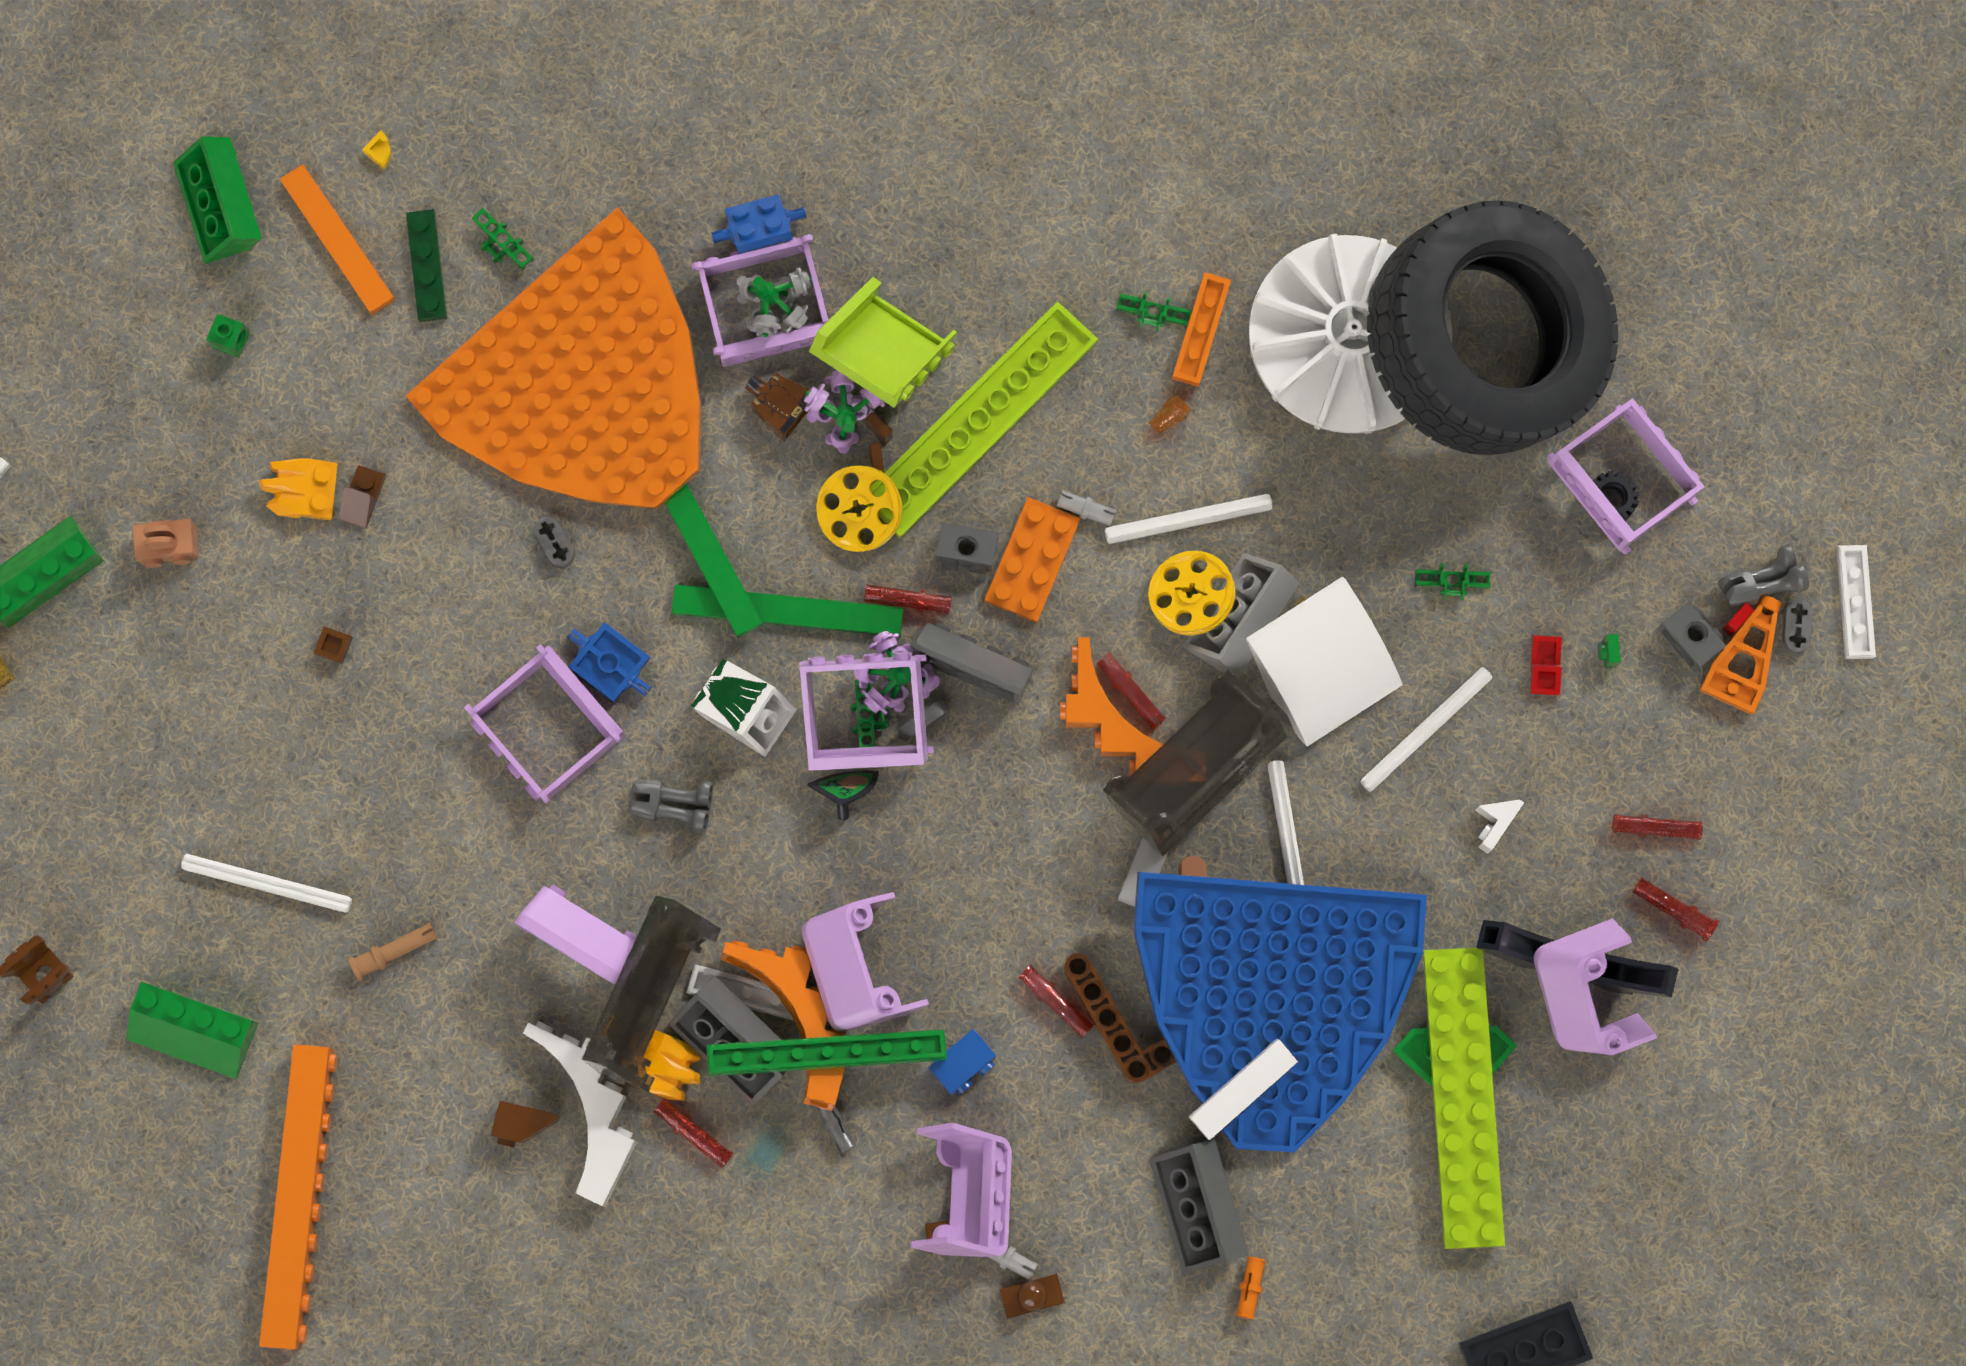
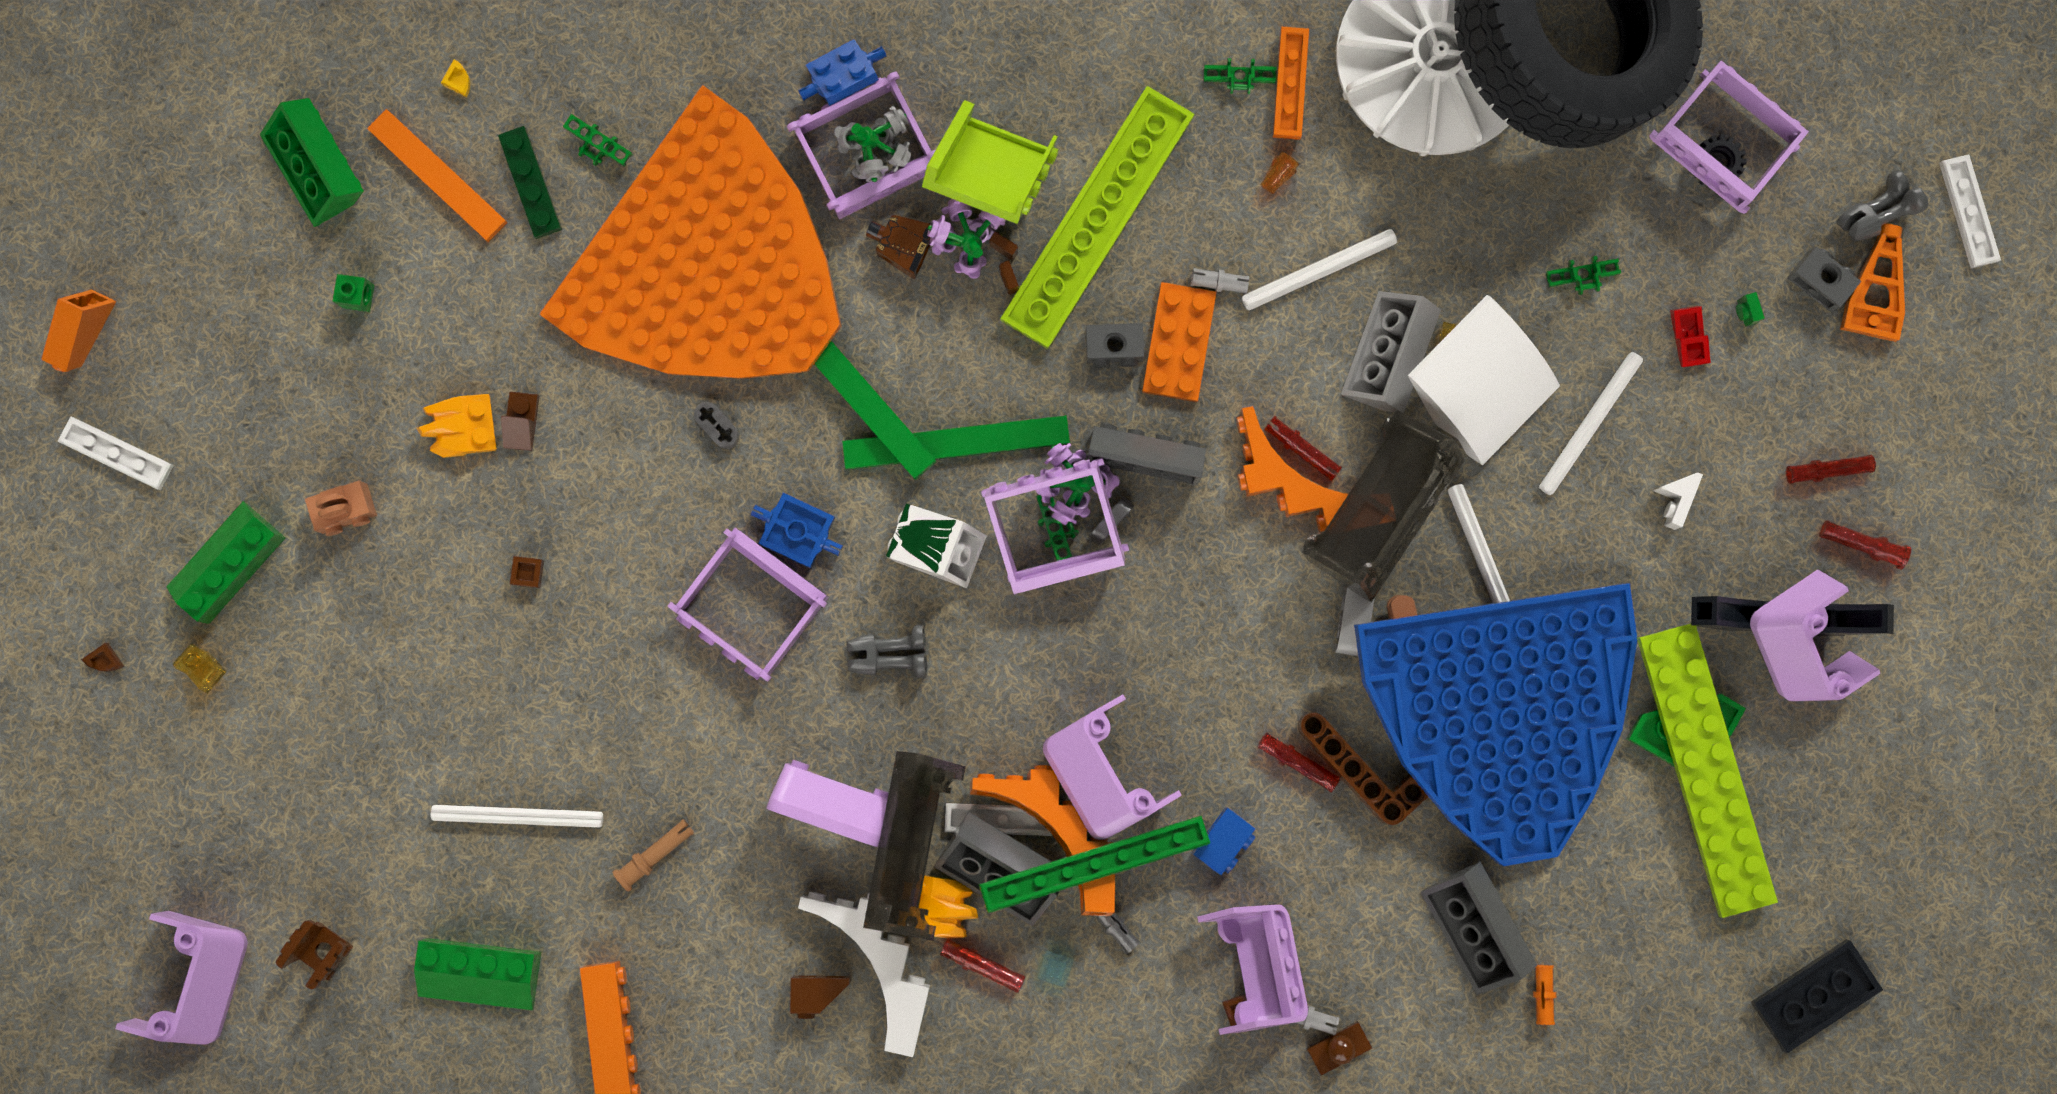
camera: 10 degrees left, 5 degrees up
(845, 788) = (1052, 602): shield -> none
(848, 500) = (1005, 315): yellow wedge -> none
(907, 598) = (1069, 405): clear red pin -> none
(1198, 602) = (1348, 350): yellow wedge -> none
(1243, 1089) = (1498, 809): white tile -> none
(1738, 619) = (1864, 253): red tile -> none
(1804, 626) = (1926, 245): flat silver beam -> none

